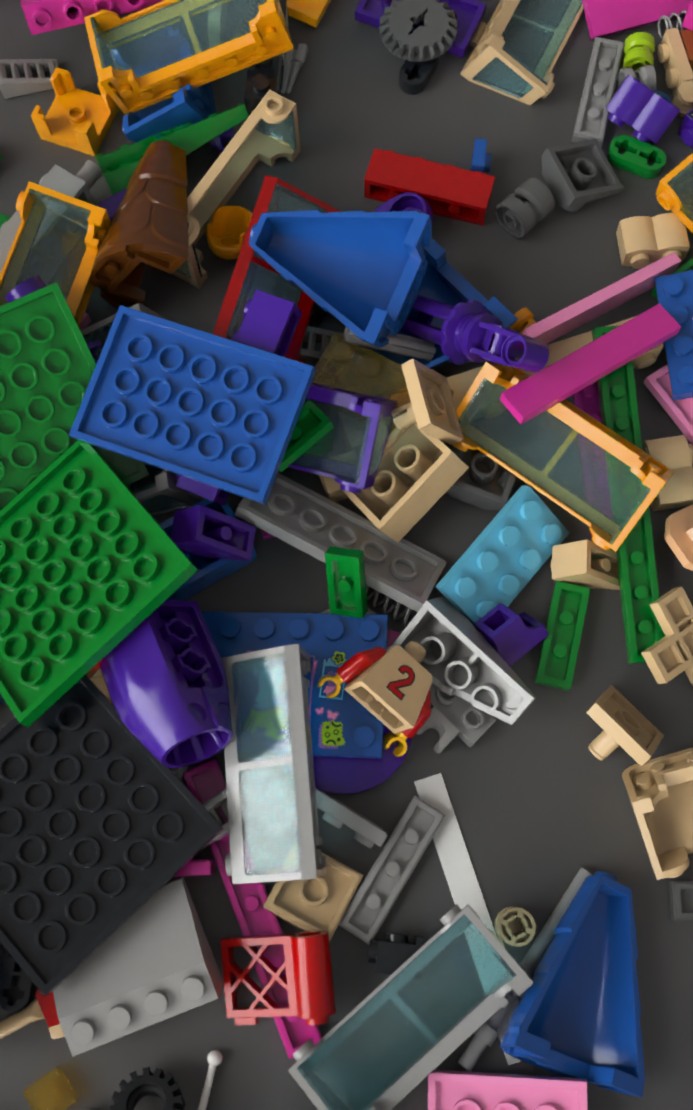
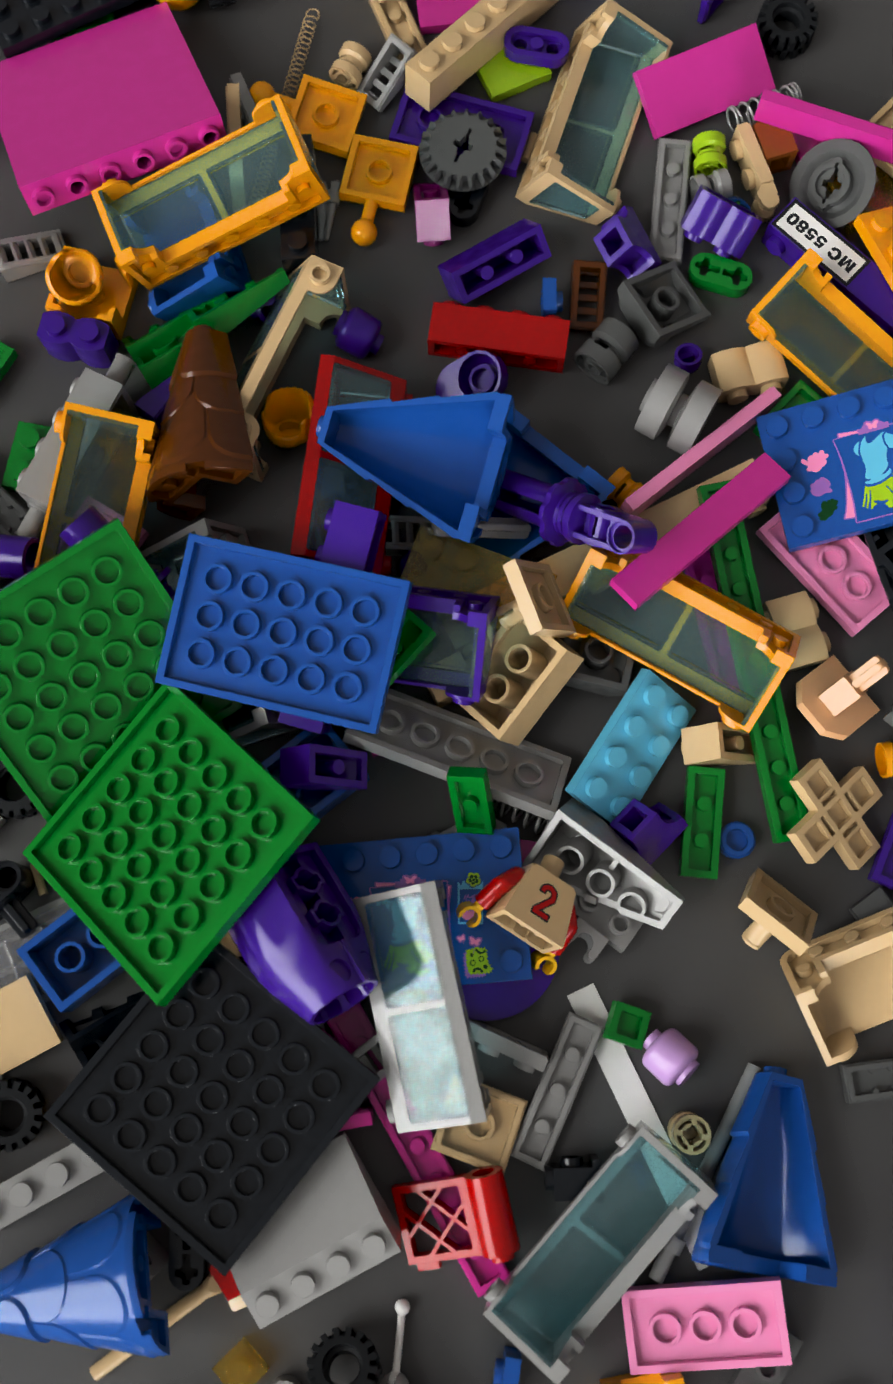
camera: 10 degrees left, 5 degrees up
(54, 146) = (78, 339): none -> dark purple brick
(60, 92) = (74, 276): none -> light orange hair
(303, 169) = (358, 333): none -> dark purple head
(339, 43) = (377, 176): none -> light orange plate
(383, 78) = (431, 213): none -> slope
(434, 121) = (494, 261): none -> dark purple brick
(467, 815) = (627, 1025): none -> green plate
(505, 850) = (670, 1057): none -> lavender head
(520, 139) = (593, 269): none -> reddish brown slope
(554, 119) = (626, 244): none -> dark purple brick
(575, 258) = (669, 405): none -> light grey wheel
(593, 657) = (737, 840): none -> blue tile
(598, 223) = (685, 355): none -> dark purple hinge

